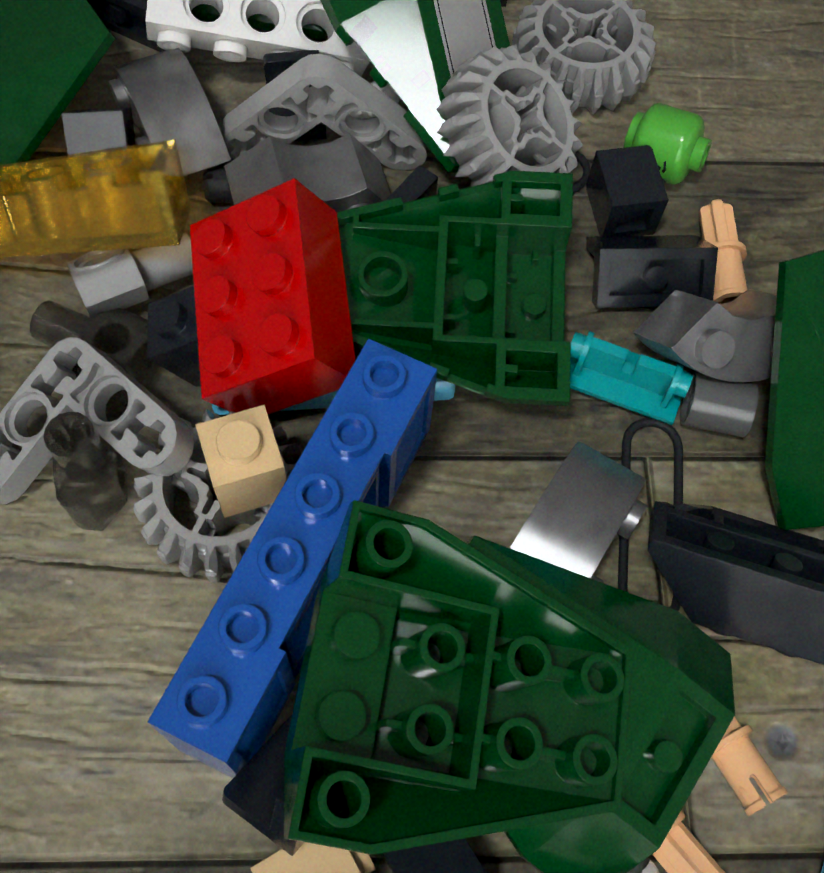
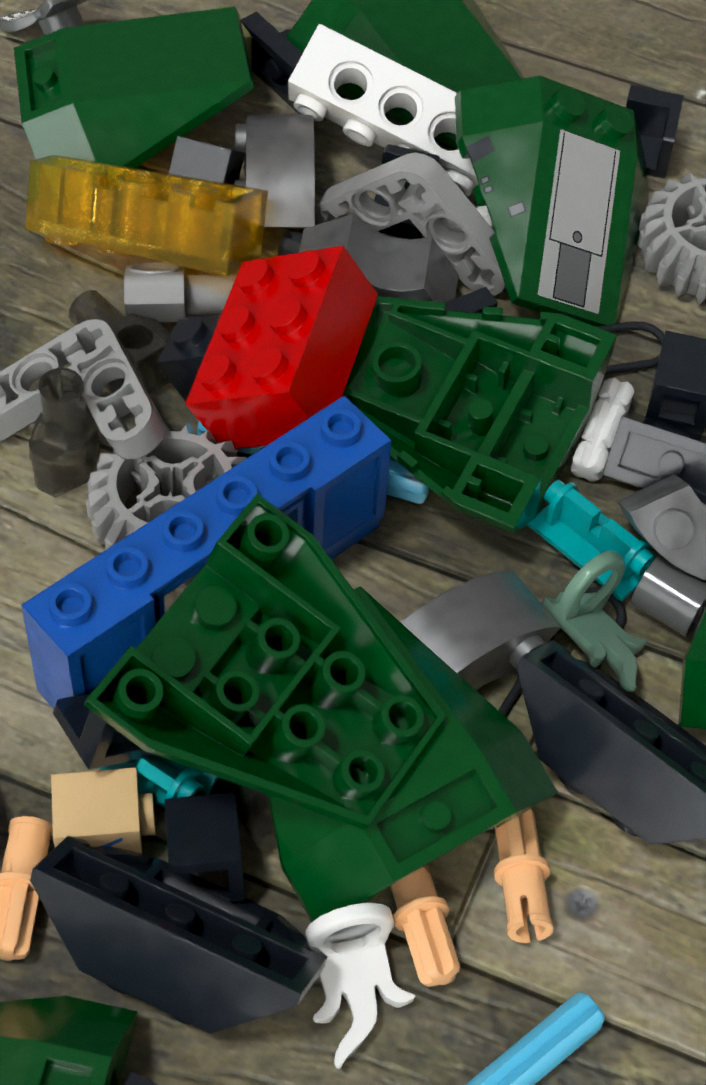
camera: 25 degrees right, 10 degrees down
(242, 460) = (191, 455): tan brick -> none
(507, 117) = (566, 249): light grey gear -> none
(579, 291) = (601, 429): none -> white axle
(674, 468) = (589, 626): none -> sand green piece

